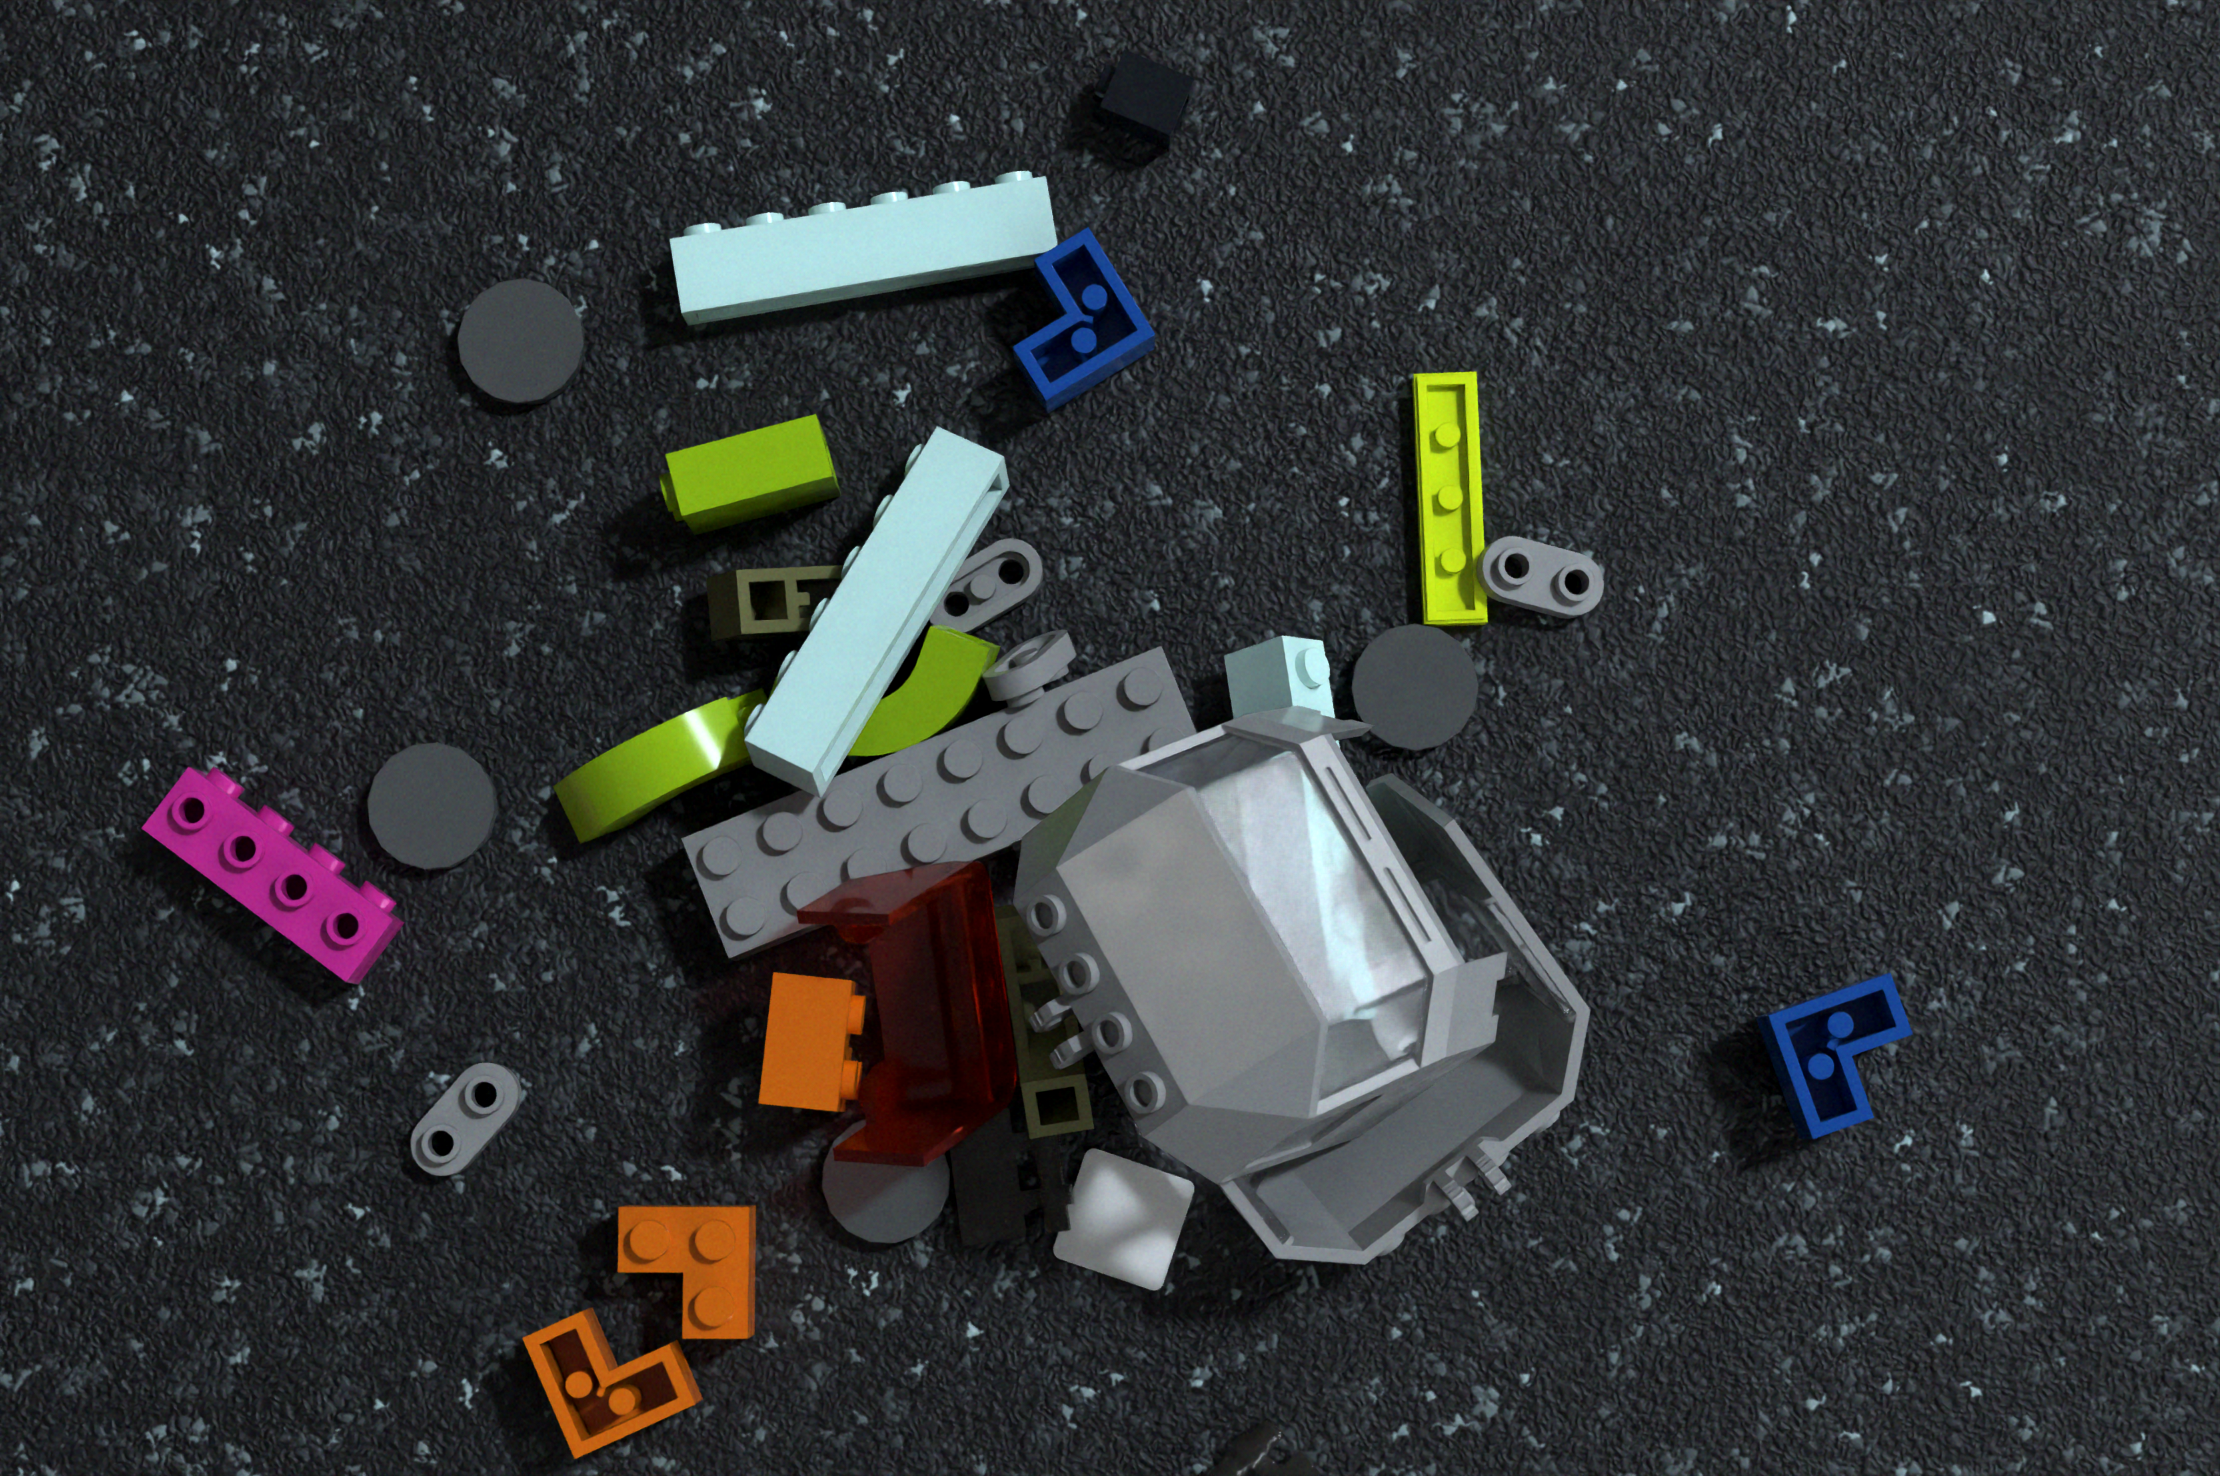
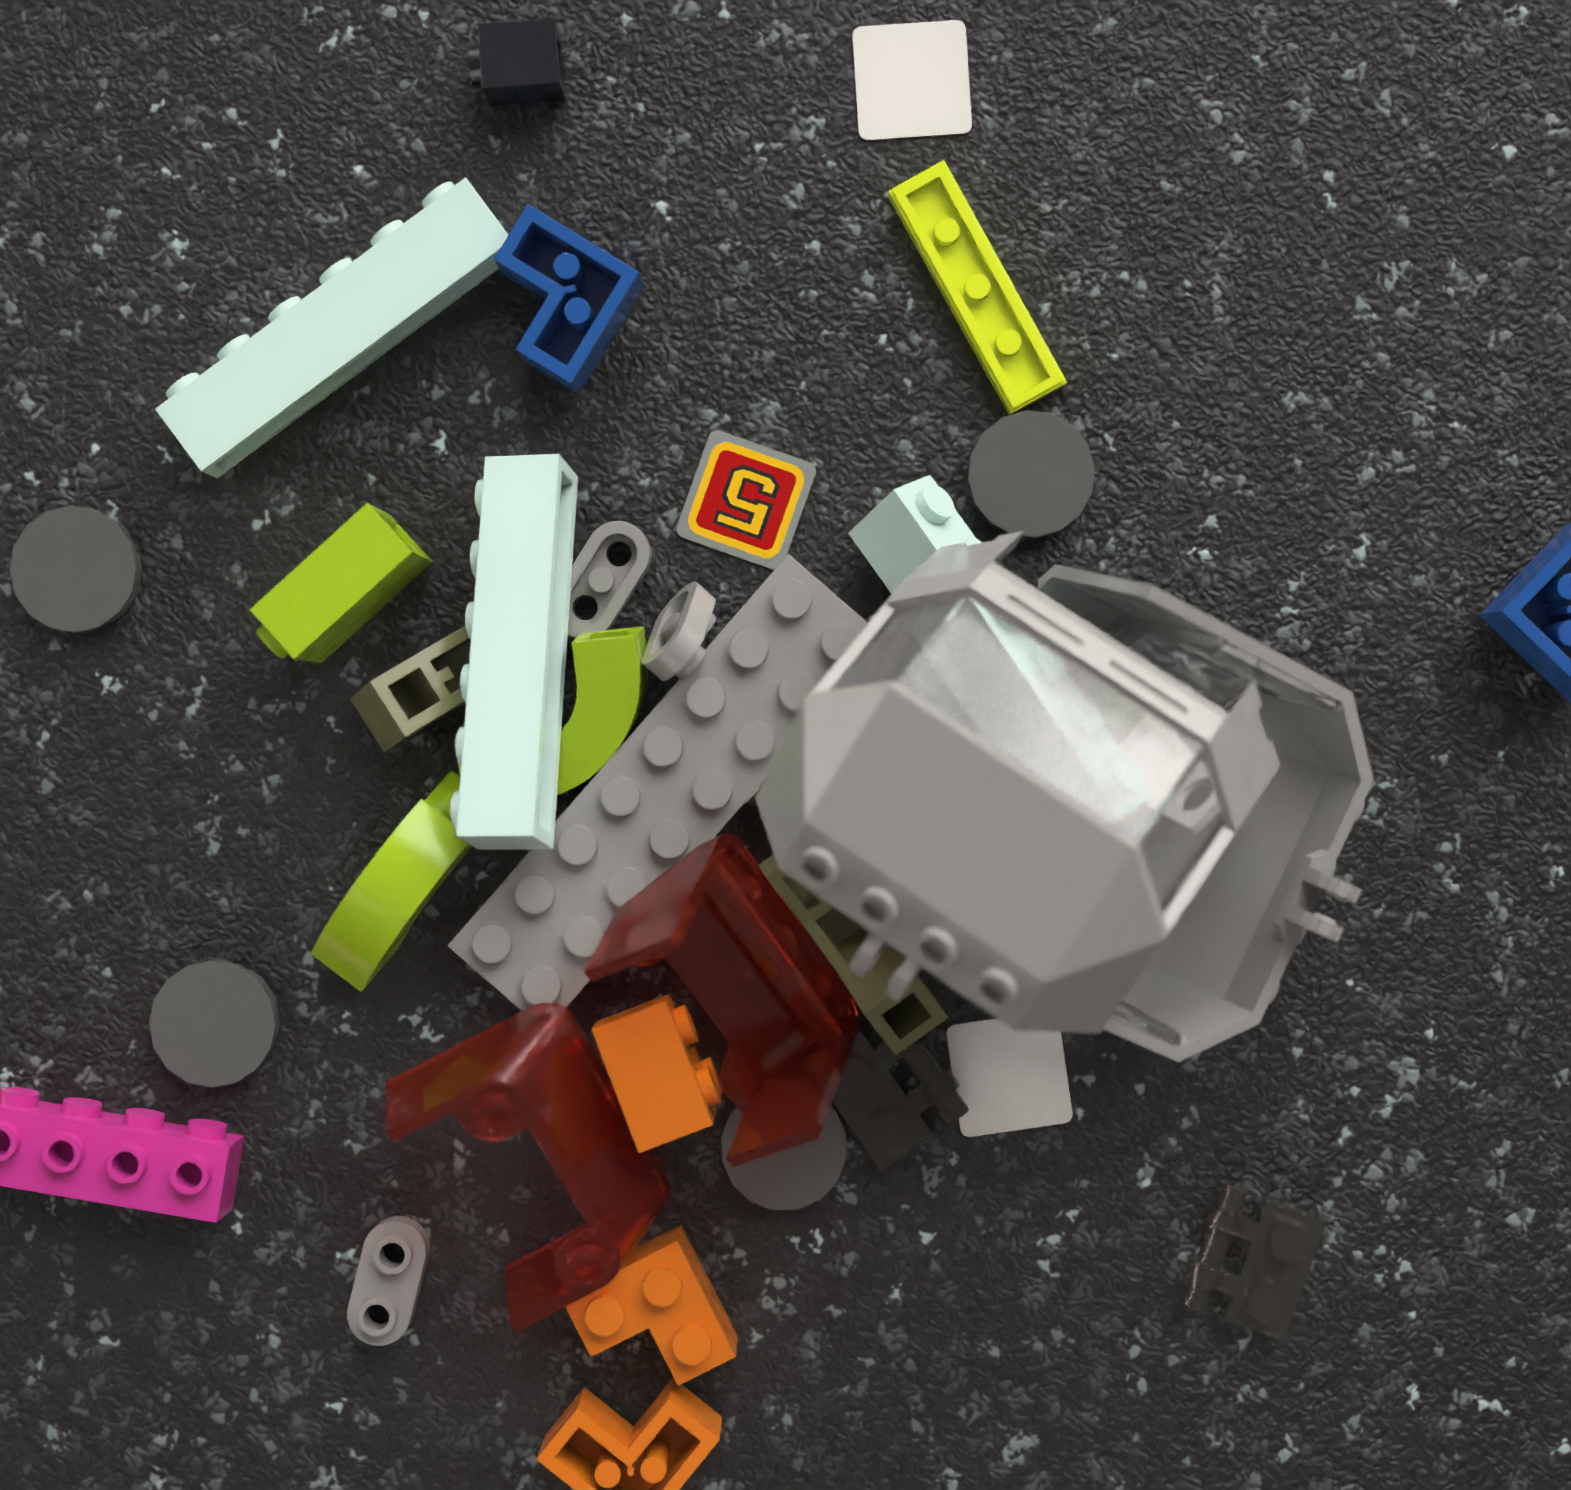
camera: 30 degrees left, 5 degrees up
(713, 995) = (549, 1079): none -> clear red windscreen
(1148, 581) = (746, 499): none -> sticker
(1485, 287) = (912, 80): none -> white sticker
(1542, 577) = (1097, 318): light grey plate -> none

